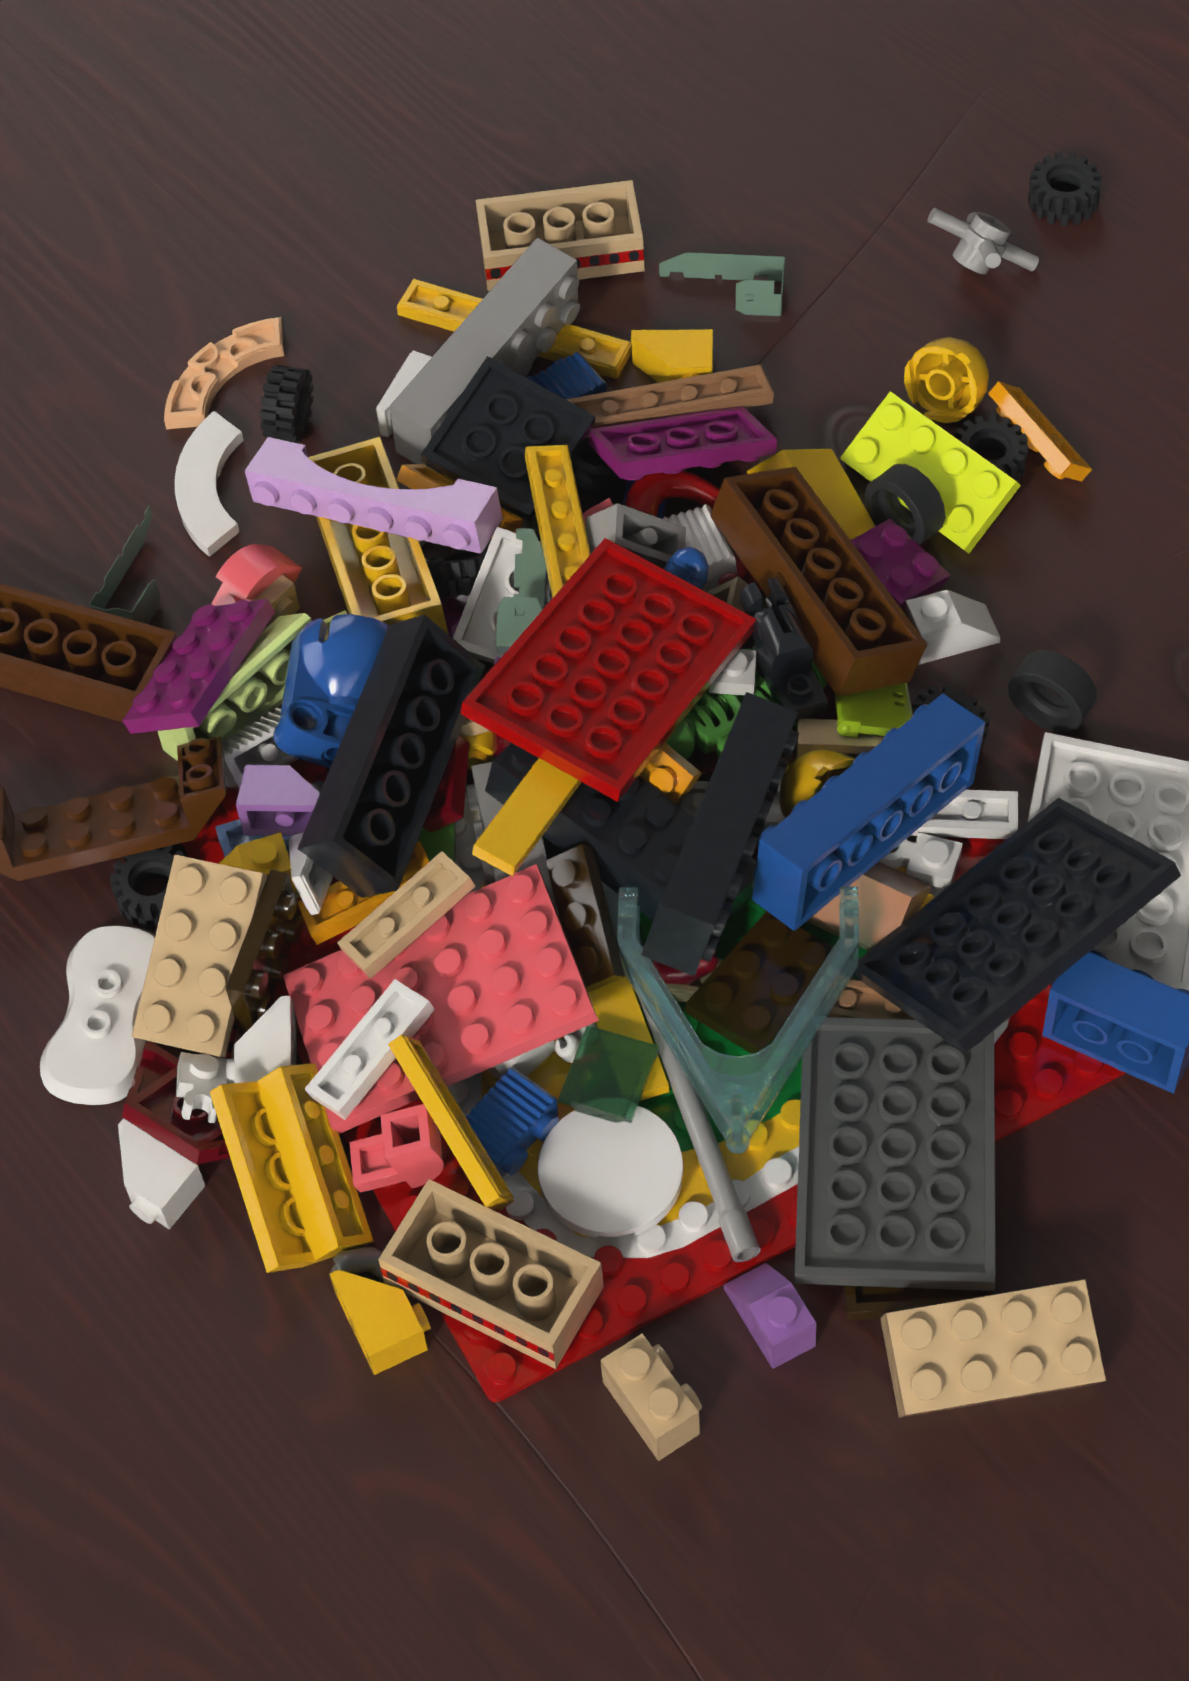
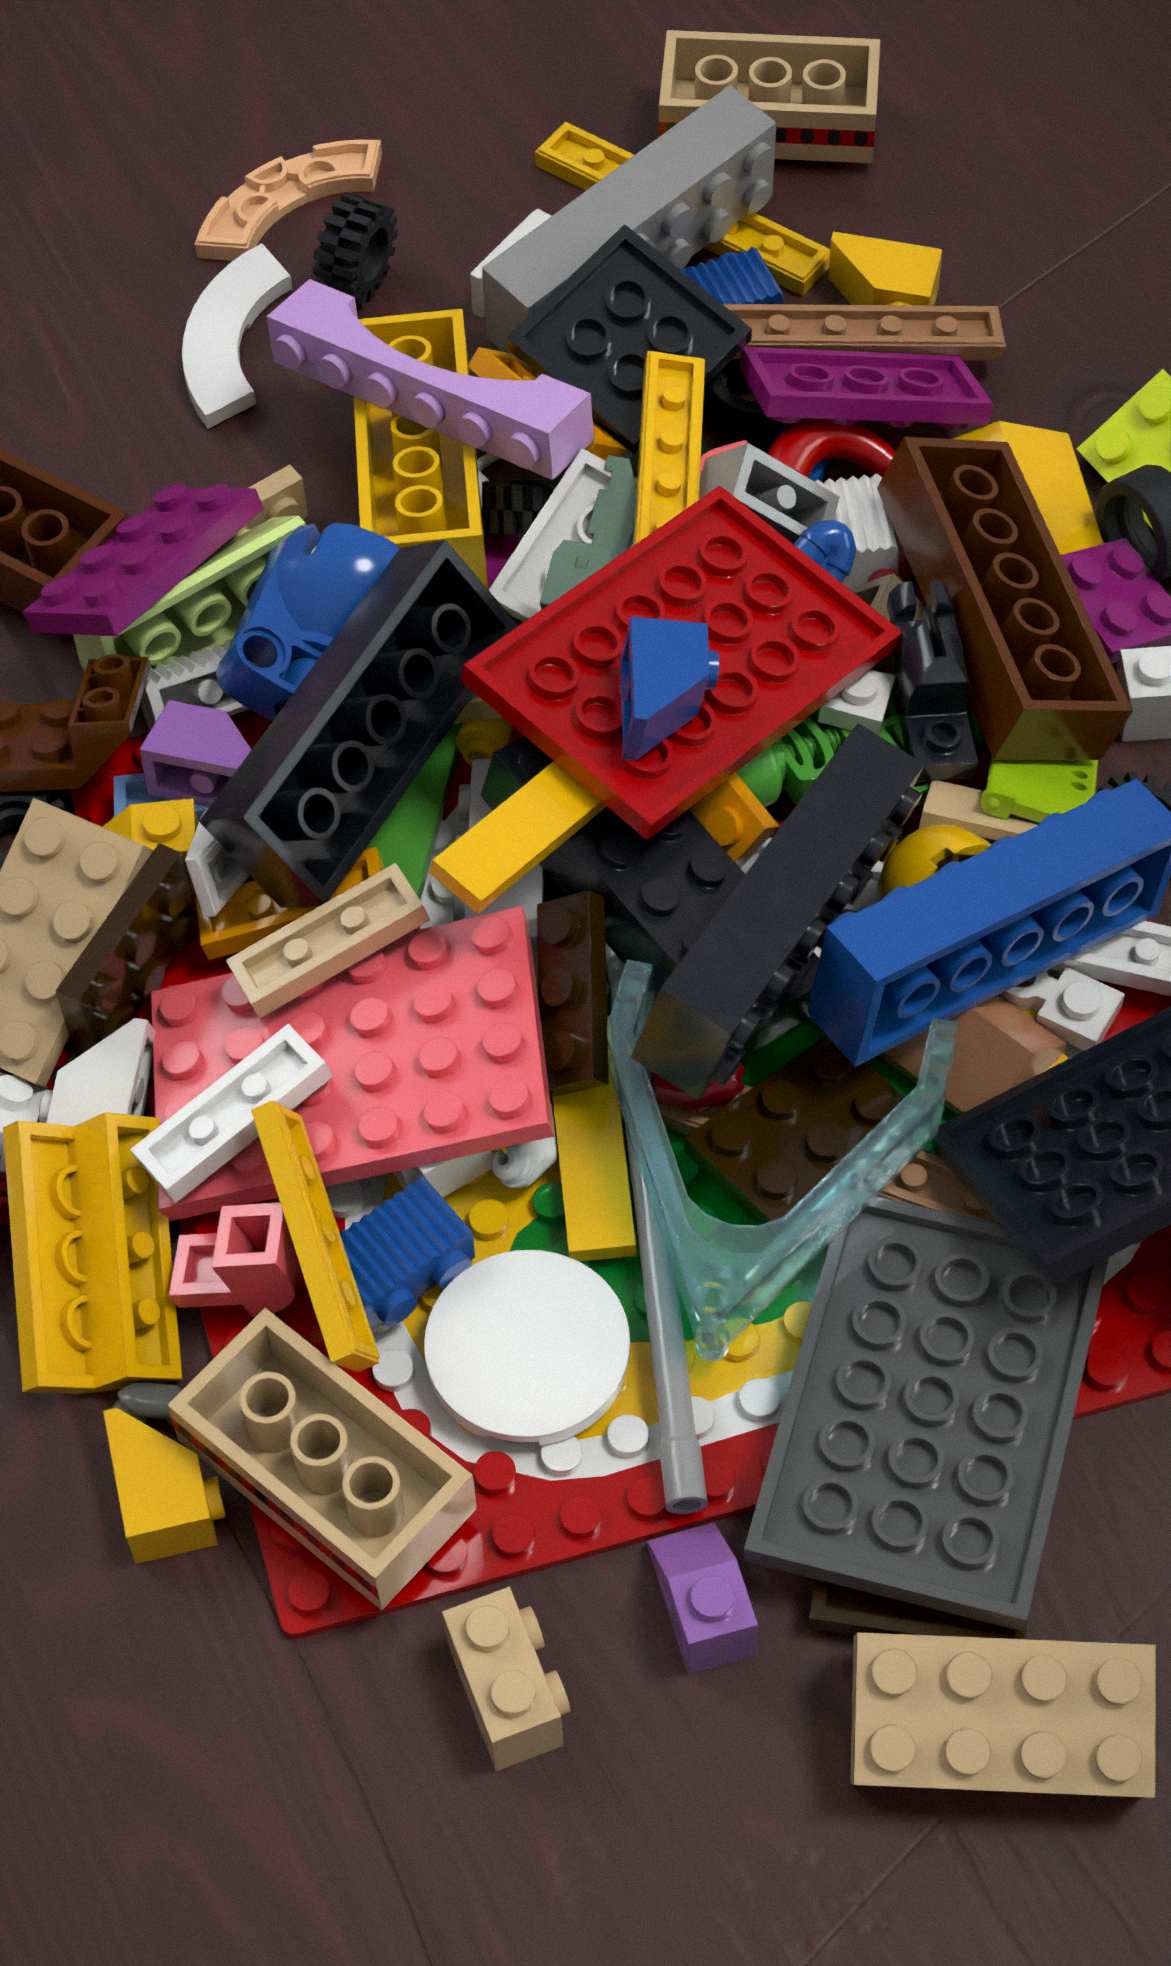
camera: 10 degrees right, 0 degrees up
(143, 610) = (99, 477): sand green piece -> none
(251, 572) = (252, 452): coral brick -> none
(450, 796) = (431, 793): dark red plate -> none
(603, 687) = (662, 679): none -> blue slope
(608, 1075) = (554, 1215): clear green piece -> none
(736, 268) = (1002, 183): sand green piece -> none

